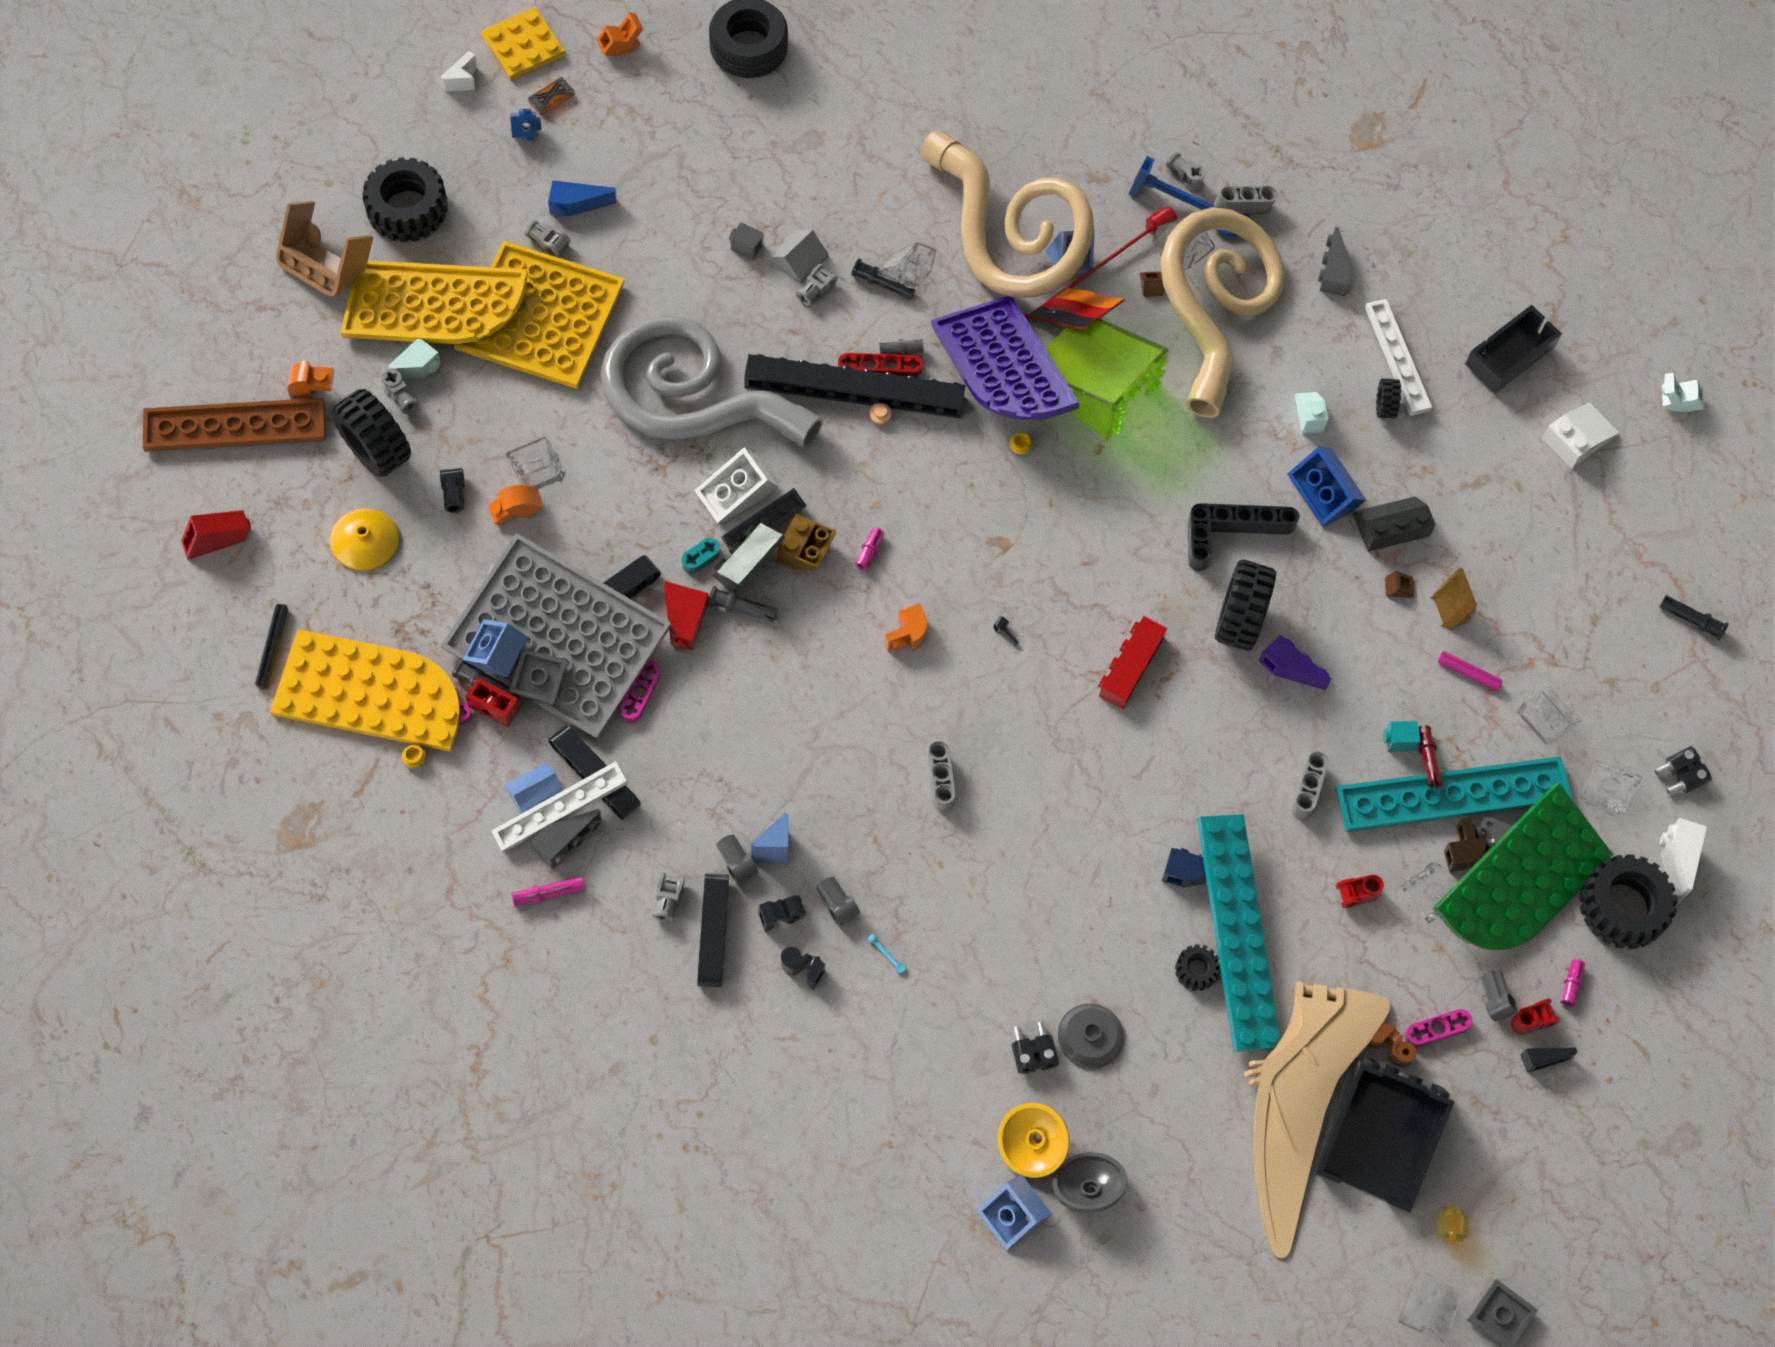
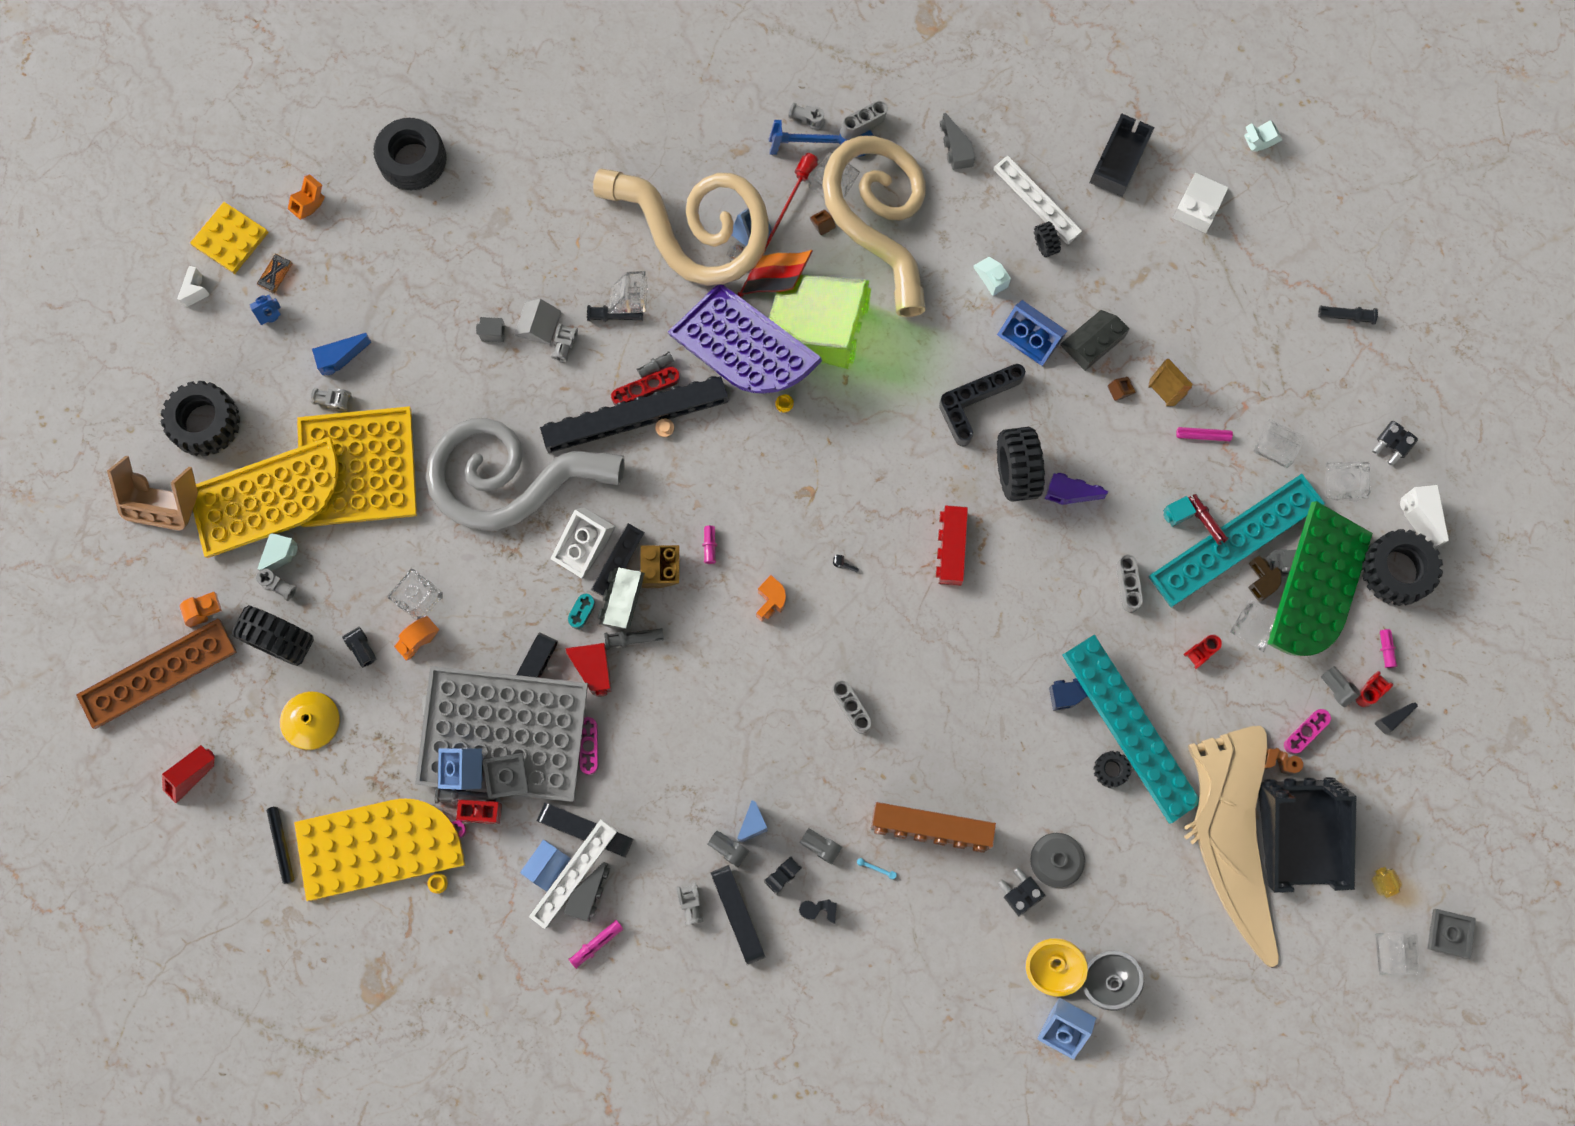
camera: 20 degrees left, 10 degrees up
(968, 933) = (933, 826): none -> dark orange brick

